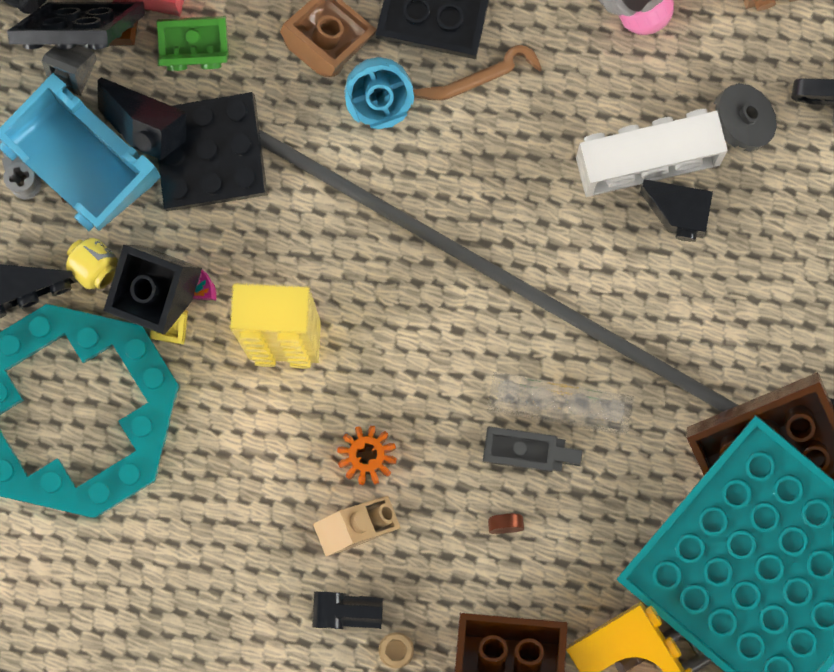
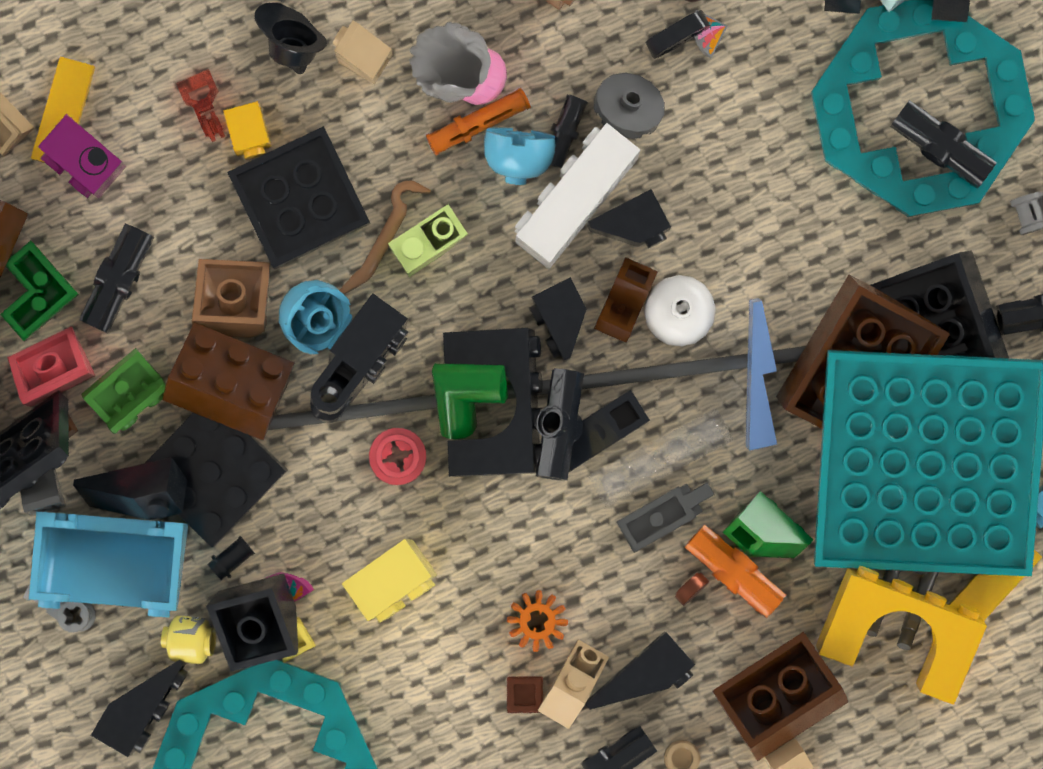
camera: 45 degrees left, 5 degrees up
(171, 228) = (230, 558): none -> black pin
(274, 90) = (228, 381): none -> reddish brown brick
(313, 504) = (524, 694): none -> copper tile
(351, 234) = (382, 448): none -> coral gear
(386, 147) = (358, 357): none -> black brick
(424, 562) = (650, 671): none -> black slope
(446, 230) = (459, 388): none -> green brick
(456, 308) = (517, 446): none -> black arch
(501, 315) = (559, 424): none -> black piece
(509, 102) = (428, 240): none -> yellowish green slope
(523, 346) = (607, 427): none -> black slope
(550, 536) = (735, 571): none -> orange piece
(570, 237) = (562, 314): none -> black slope
(599, 524) = (766, 530): none -> green slope
(617, 43) = (470, 125): none -> orange pin
(627, 263) = (625, 300): none -> reddish brown slope
(630, 89) = (518, 153): none -> medium azure cylinder
(648, 303) = (665, 317): none -> white cylinder
(681, 99) = (566, 128): none -> black pin
(697, 387) = (759, 422): none -> medium blue slope

